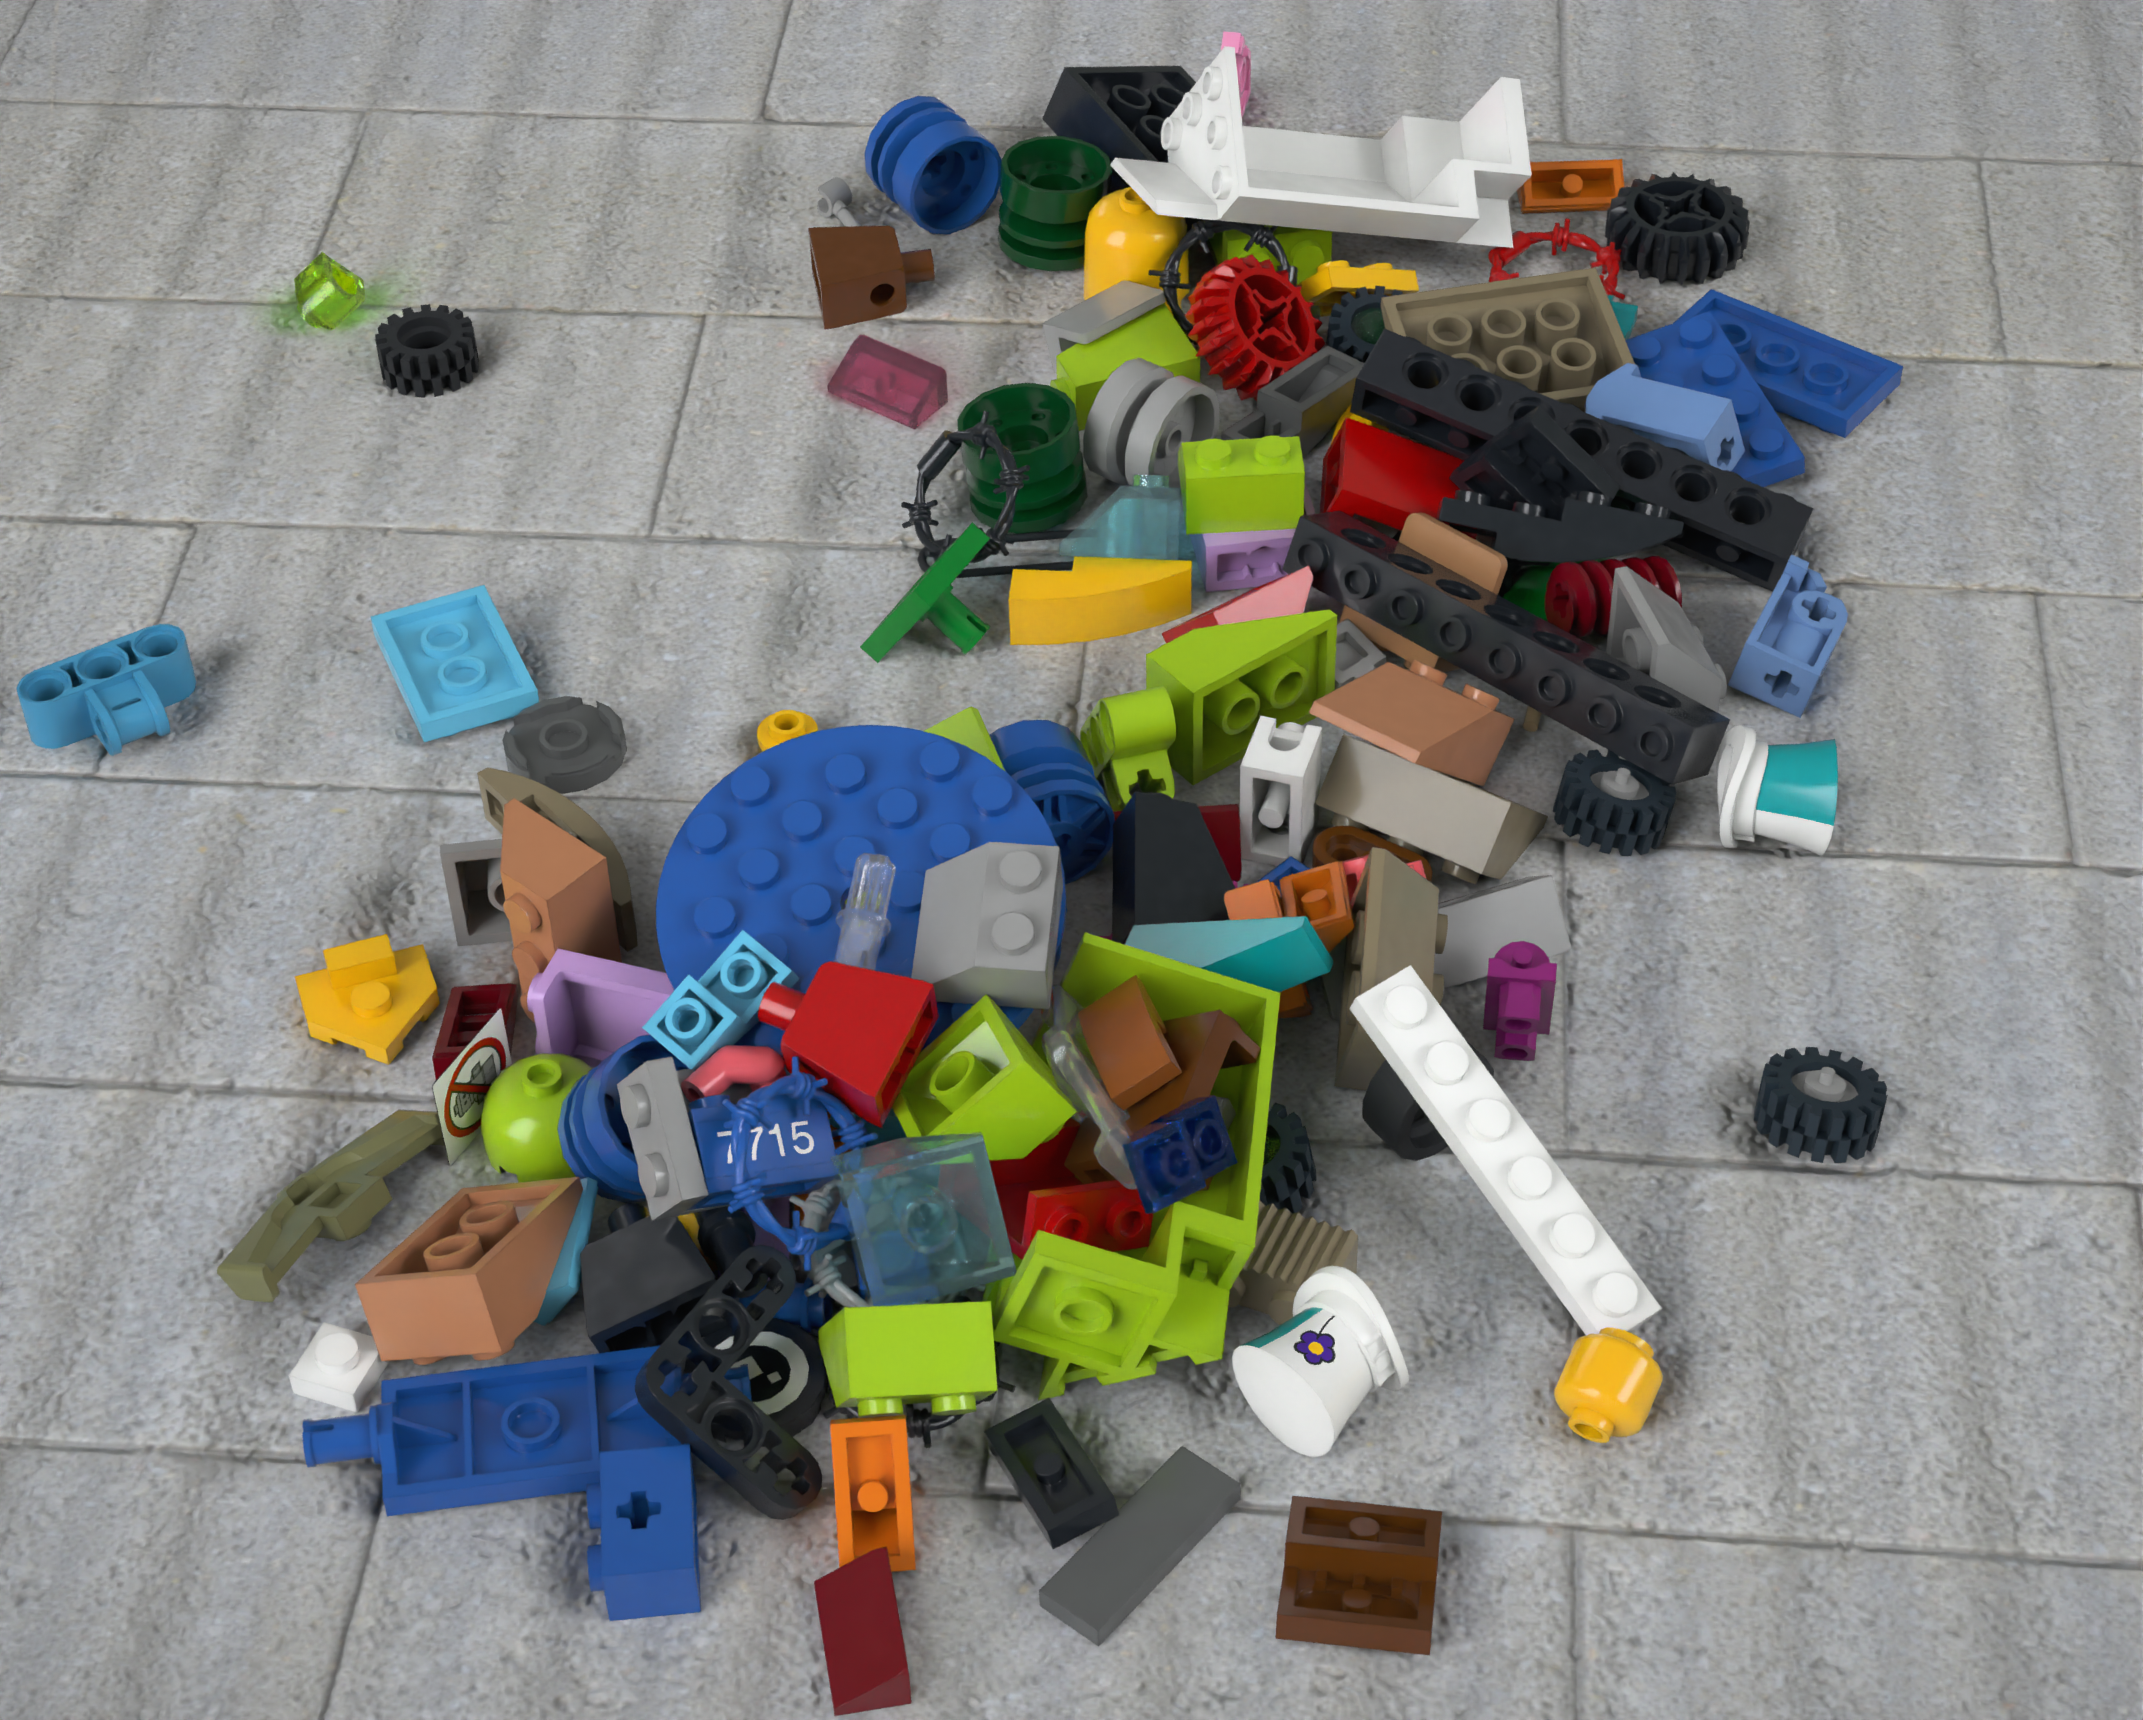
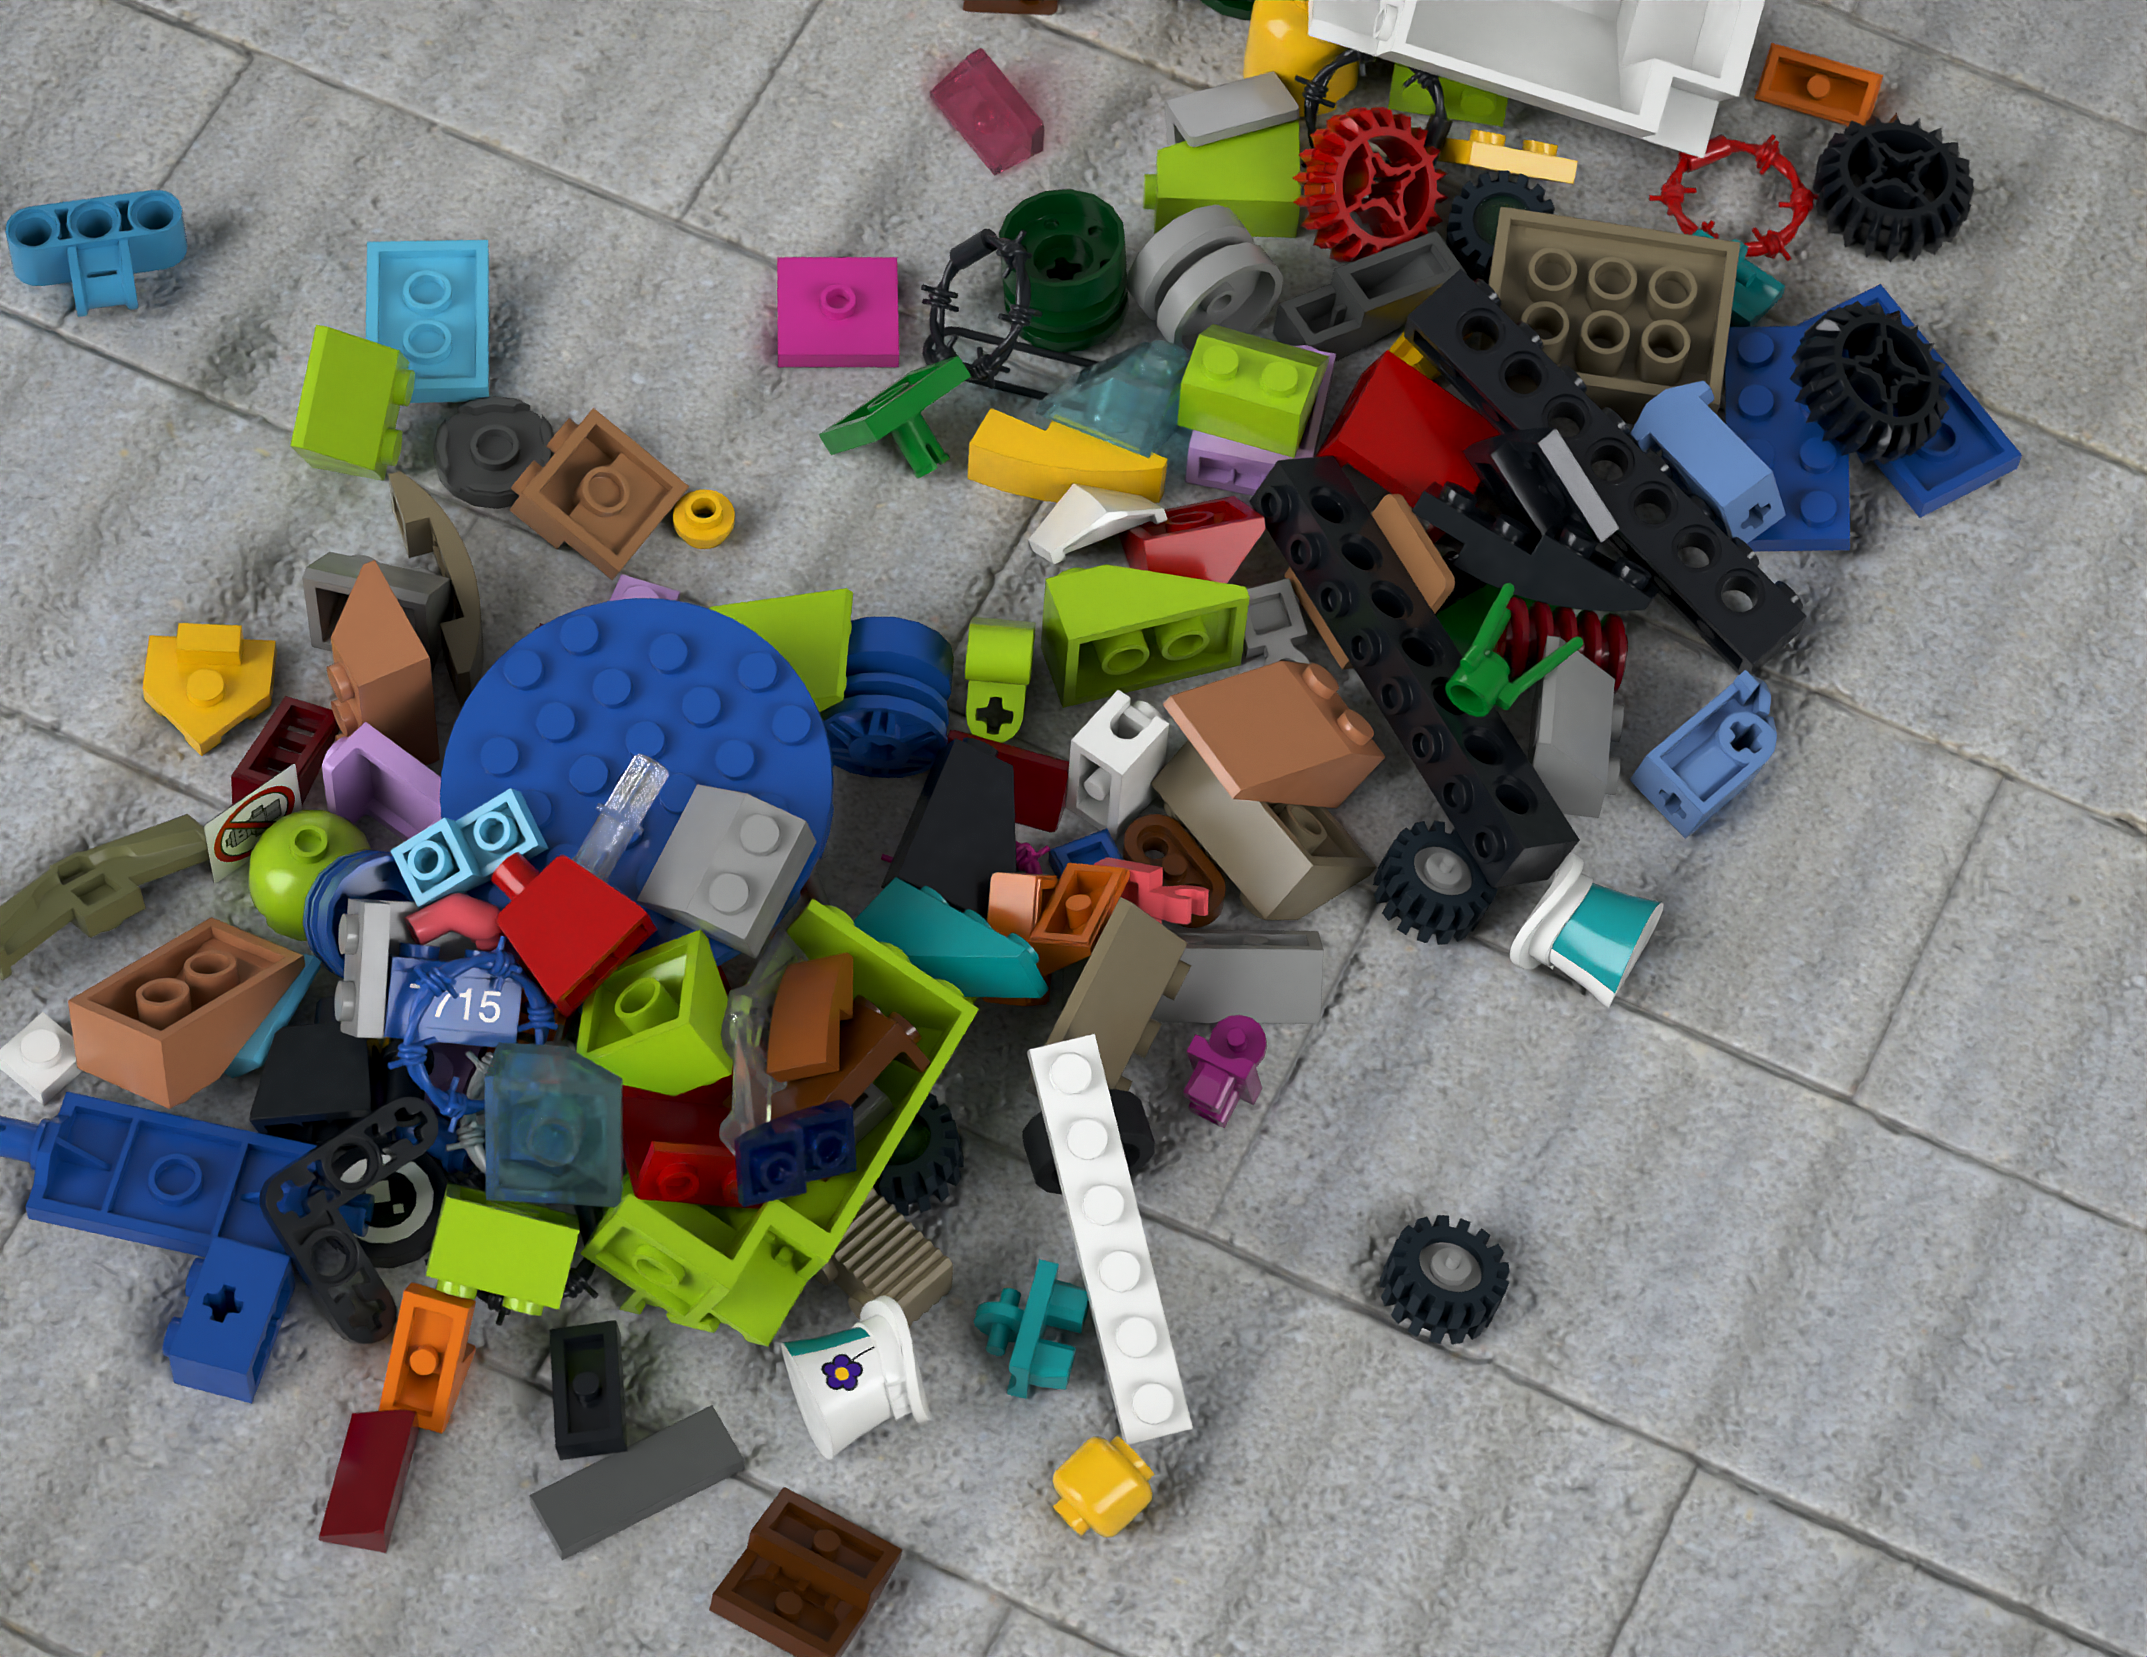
camera: 15 degrees right, 15 degrees up
(419, 727) = (352, 405): none -> lime slope
(676, 737) = (596, 493): none -> medium nougat plate
(829, 556) = (837, 312): none -> dark pink plate
(1144, 624) = (1089, 516): none -> white slope
(1455, 1274) = (1034, 1358): none -> teal hips
(1580, 607) = (1484, 674): none -> green plant
(1760, 335) = (1858, 393): none -> black gear

